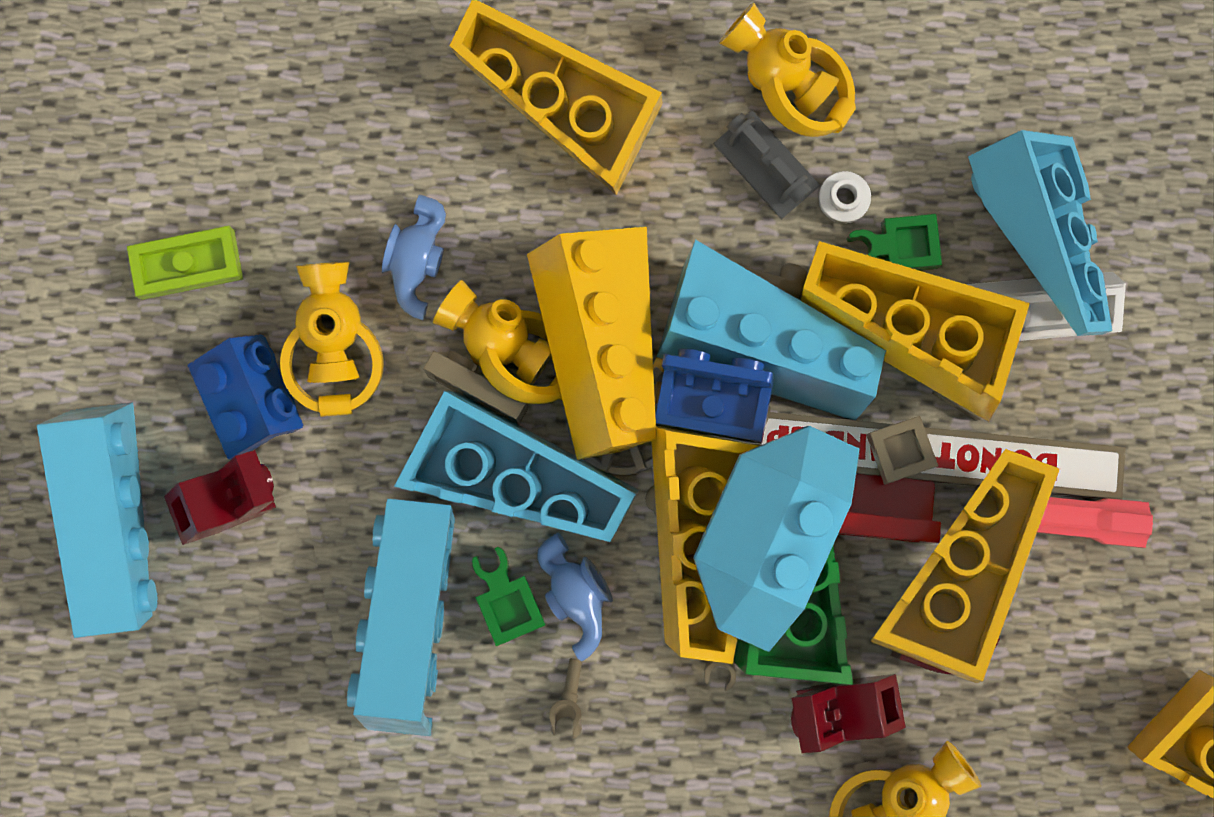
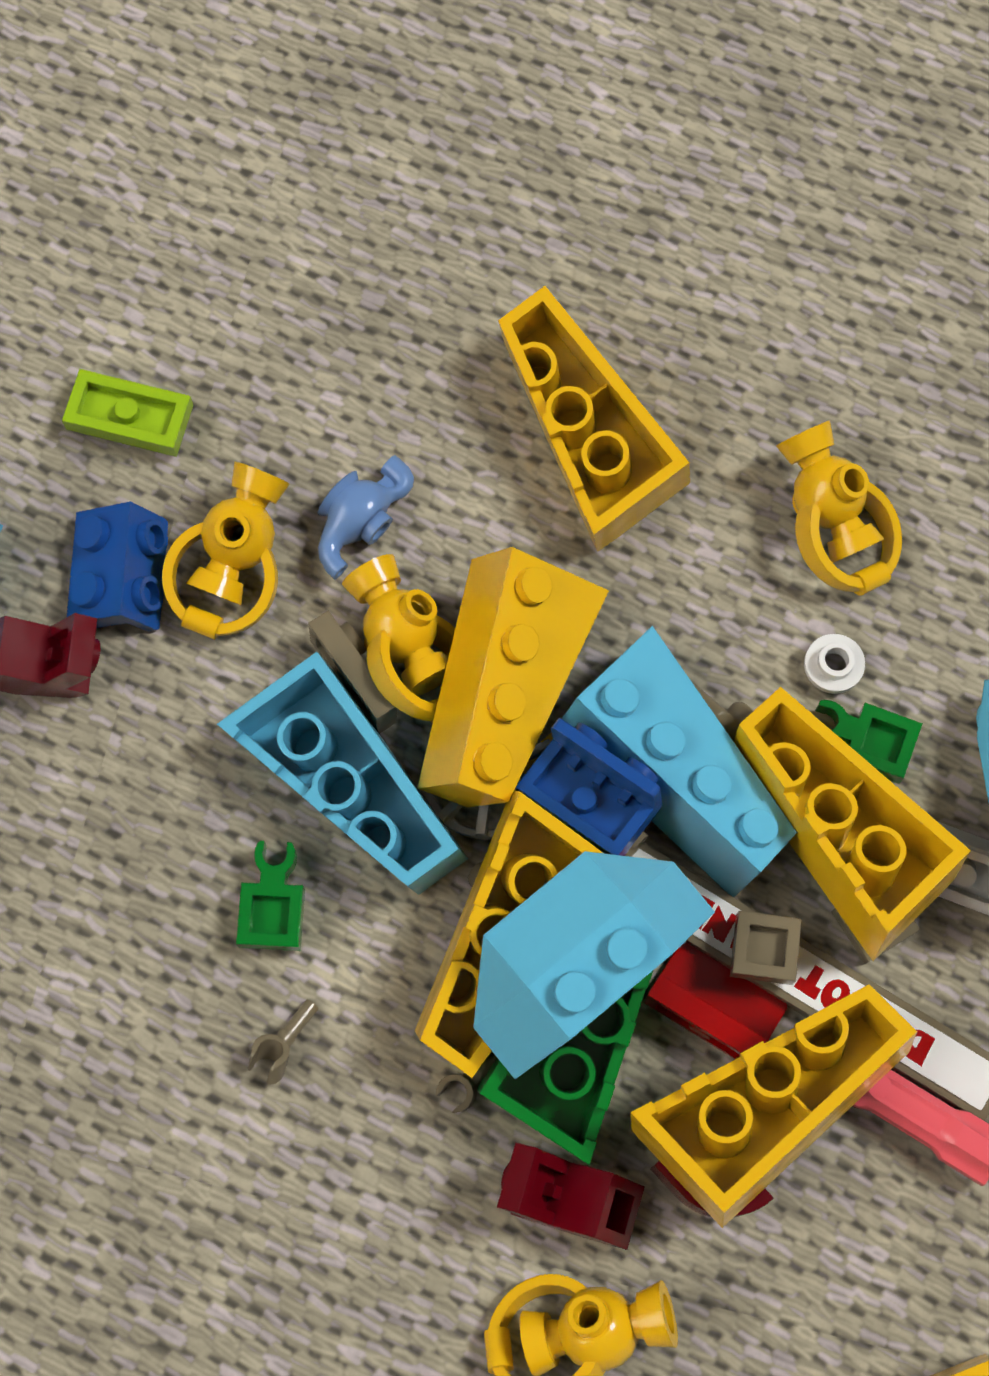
camera: 25 degrees right, 10 degrees down
(402, 617) = (154, 868): medium azure wedge -> none
(575, 592) = (346, 930): medium blue piece -> none
(766, 163) = (768, 591): dark grey hinge -> none

